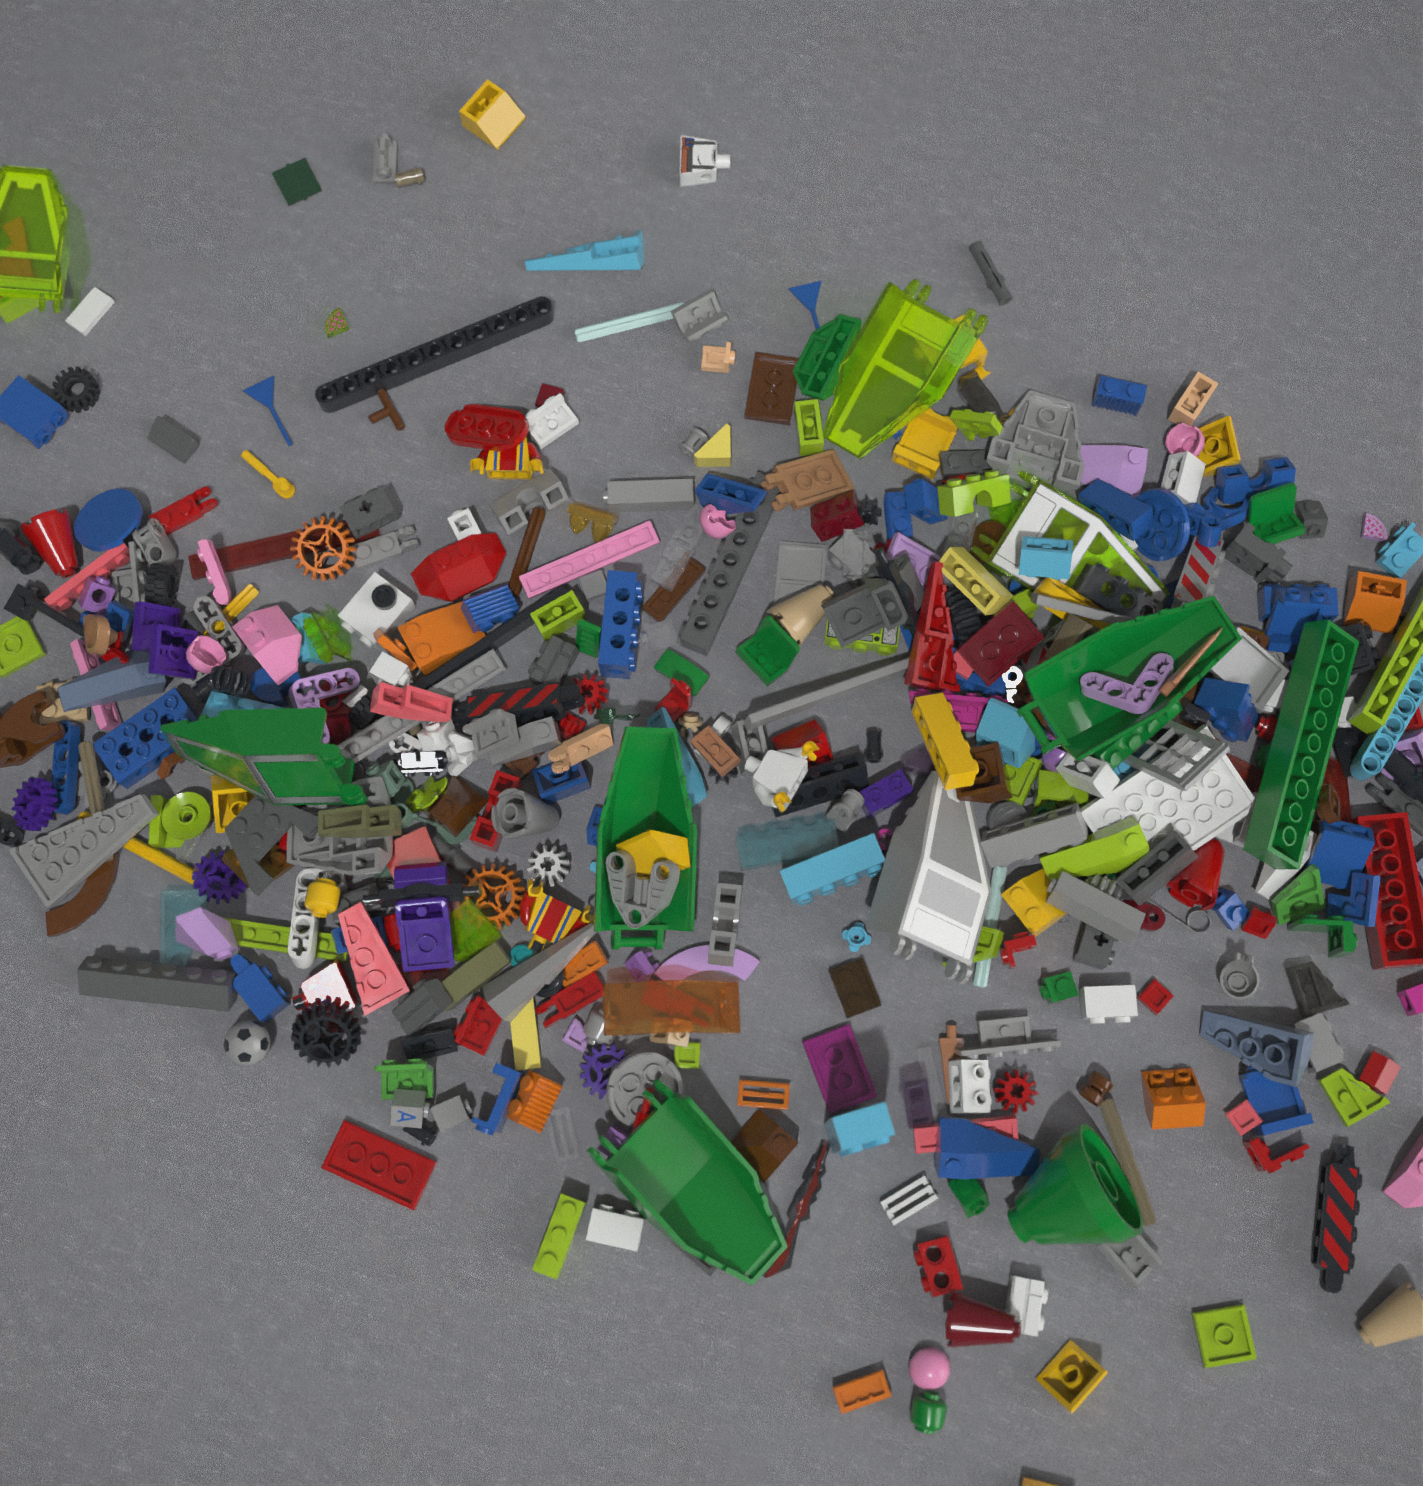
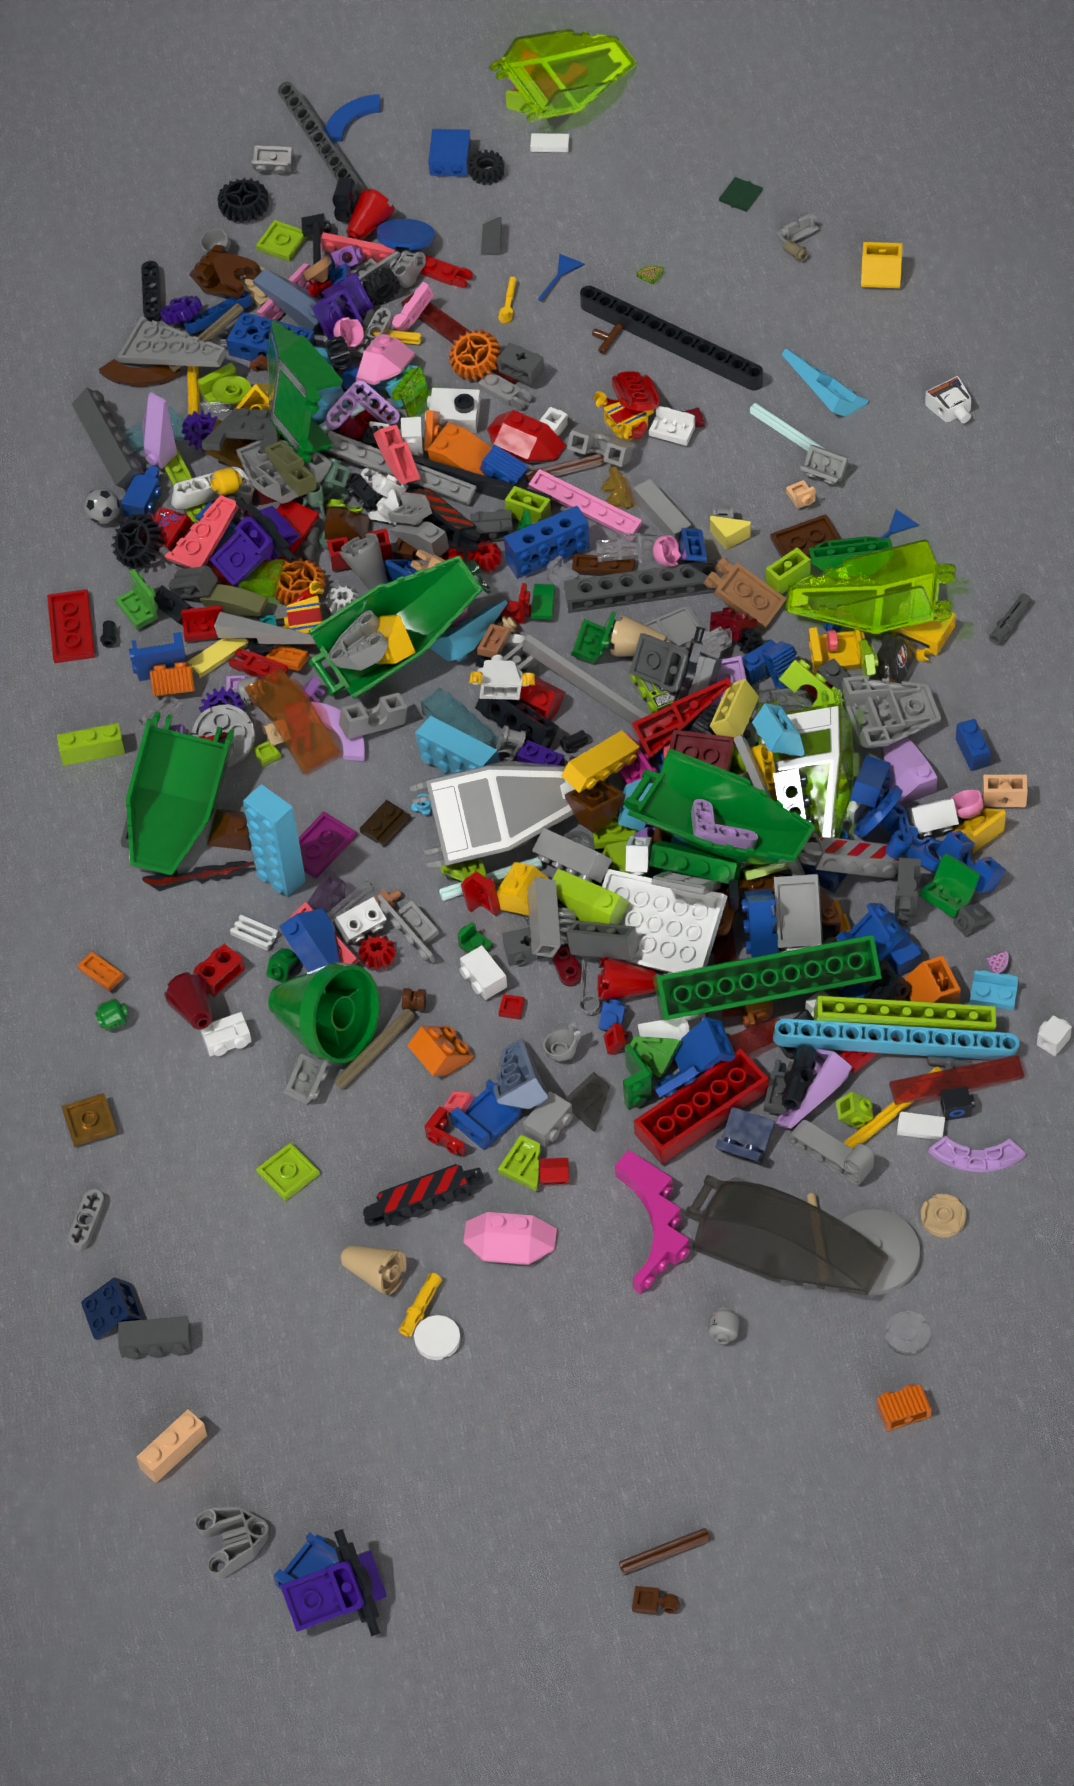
camera: 60 degrees right, 20 degrees down
(409, 1108) = (118, 613): light grey brick -> none
(452, 1113) = (127, 635): light grey brick -> none
(615, 1228) = (116, 772): white brick -> none
(916, 440) = (831, 640): none -> coral tile
(929, 1368) = (143, 1004): bright pink hair -> none
(1071, 1376) = (193, 1091): yellow slope -> none
(1174, 680) = (745, 843): nougat bar -> none
(1329, 804) = (733, 1017): reddish brown plate -> none

